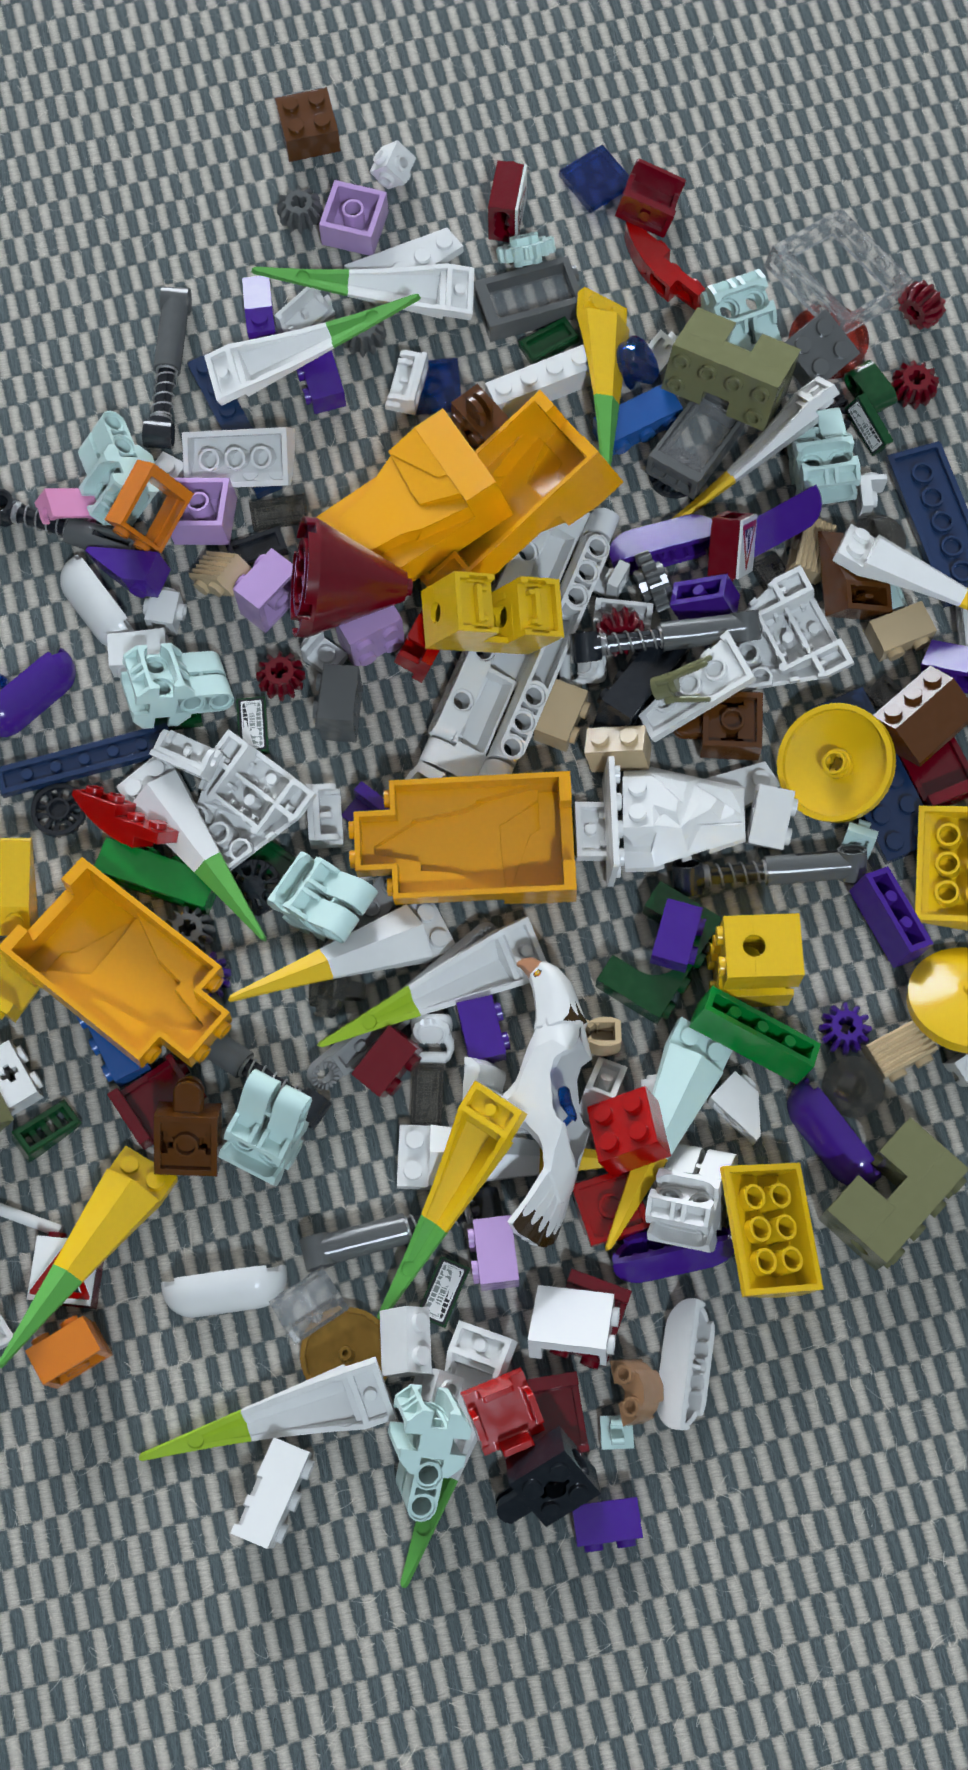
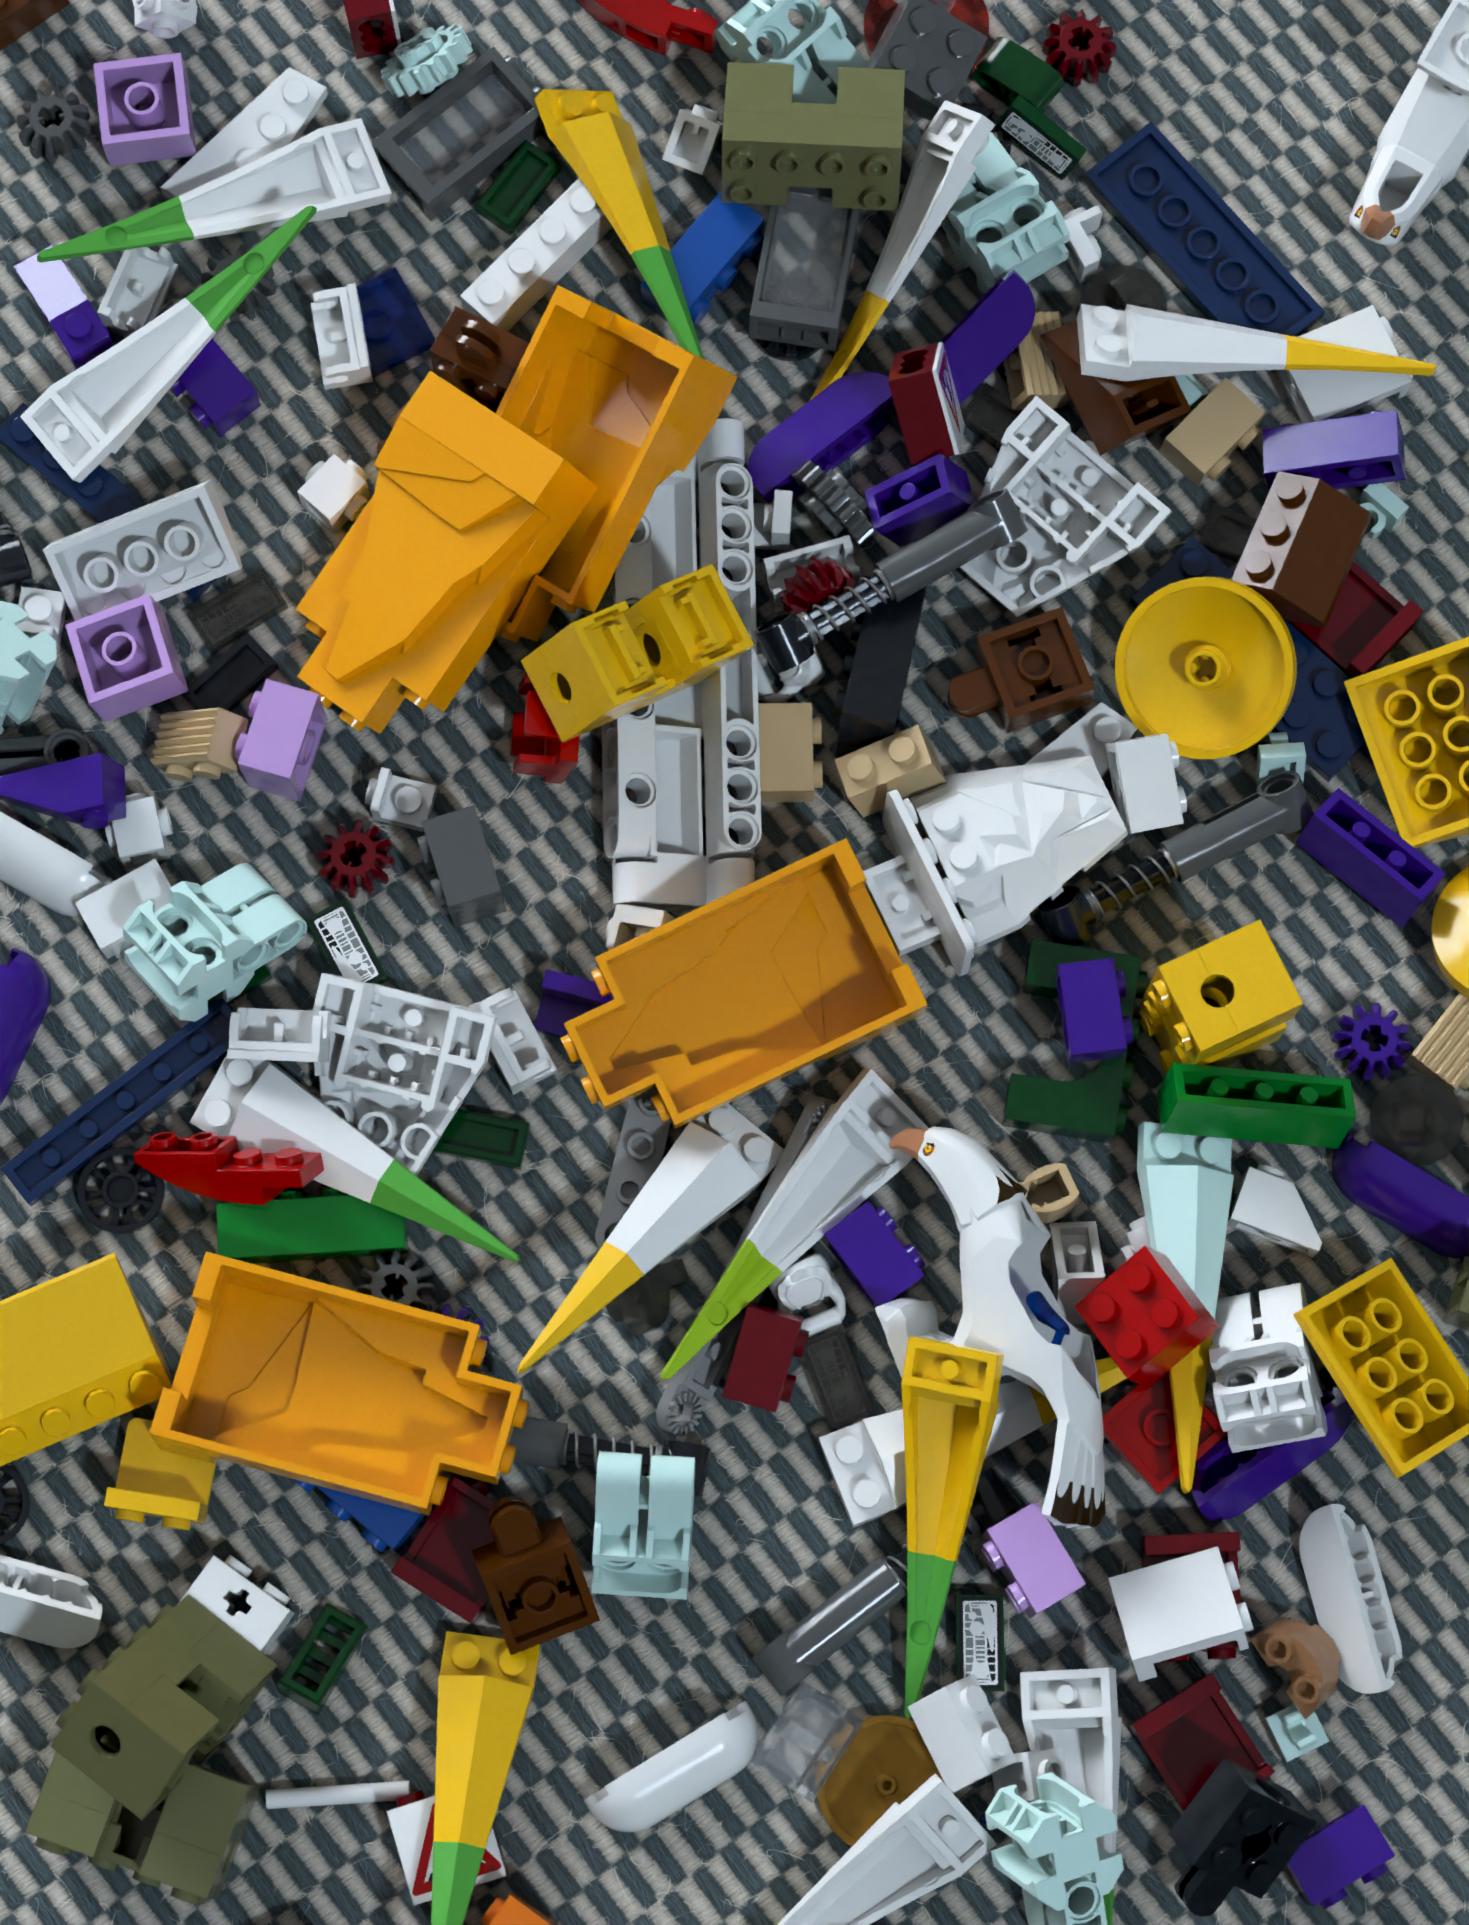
camera: 25 degrees left, 5 degrees up
(168, 515) = (85, 698): orange window -> none
(255, 886) = (461, 1183): black wheel -> none
(321, 898) = (572, 1166): light aqua connector -> none
(339, 580) = (394, 696): dark red cone -> none
(362, 465) = (335, 492): none -> white brick
(371, 636) = (458, 740): lavender brick -> none
(504, 1413) = (1141, 1773): red panel -> none
(636, 362) = (667, 174): clear blue piece -> none
(667, 684) = (926, 650): olive plant -> none
(720, 679) = (982, 625): white wing -> none

